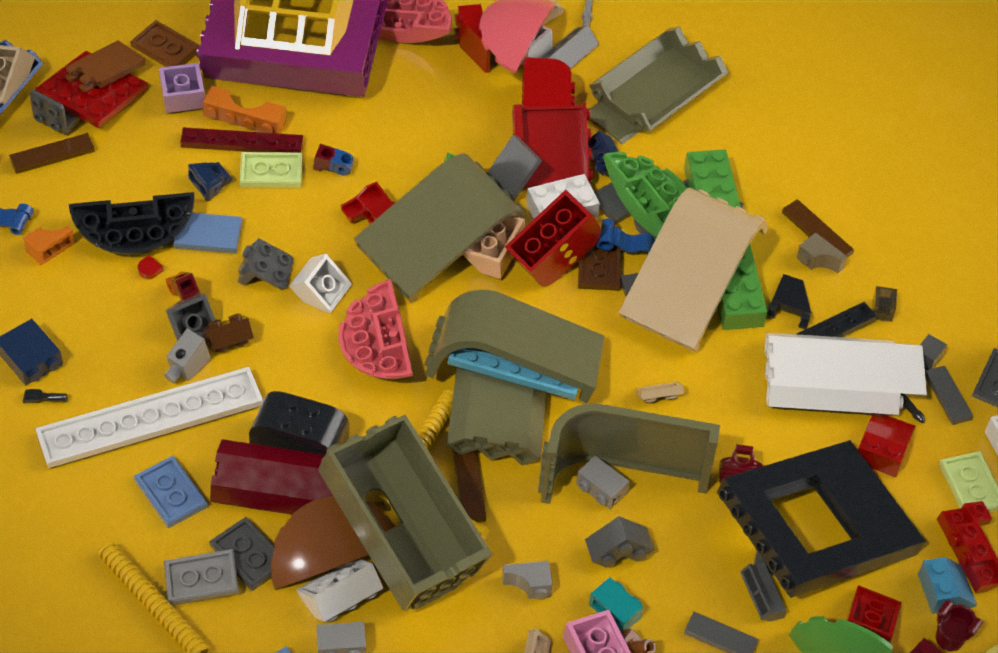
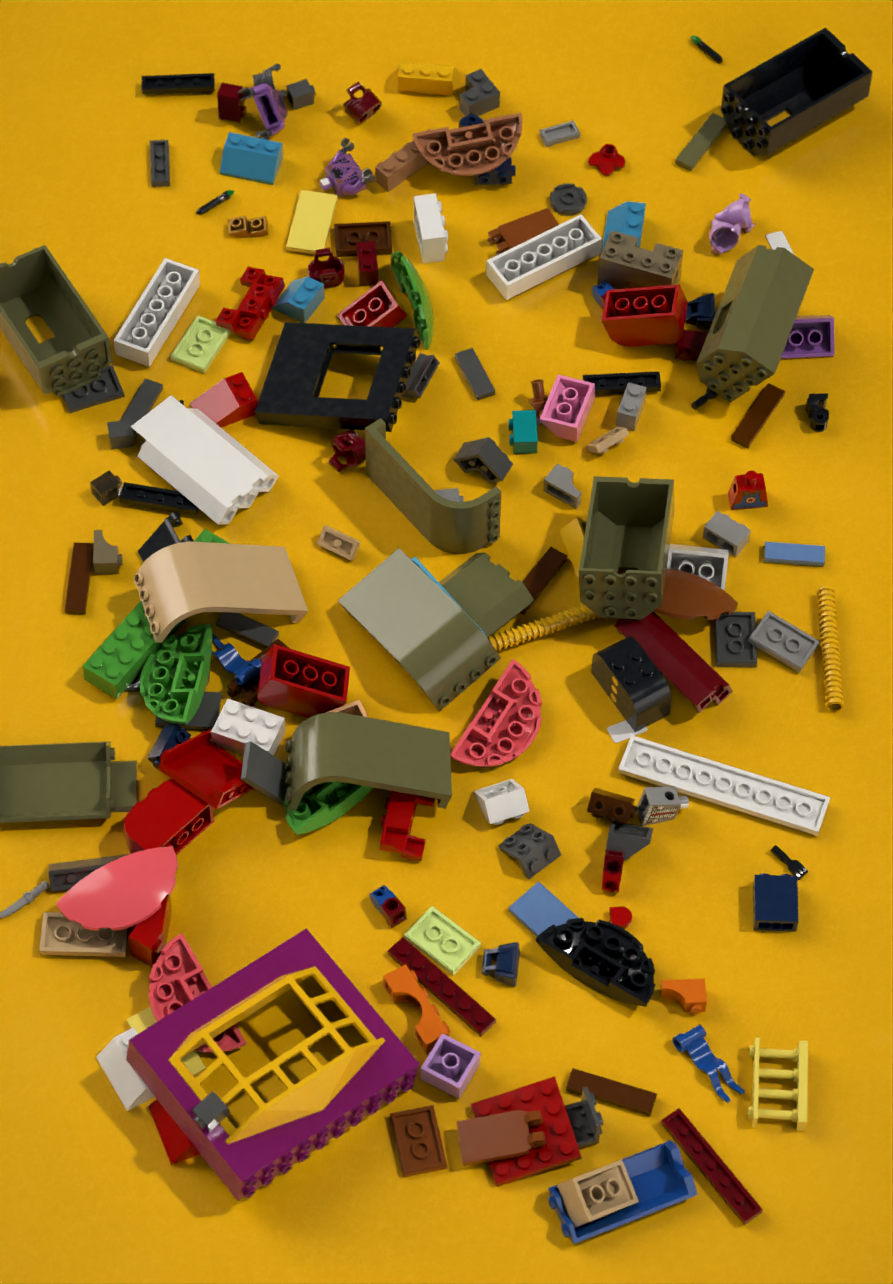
camera: 135 degrees left, 5 degrees up
(170, 491) = (753, 721): medium blue tile -> none

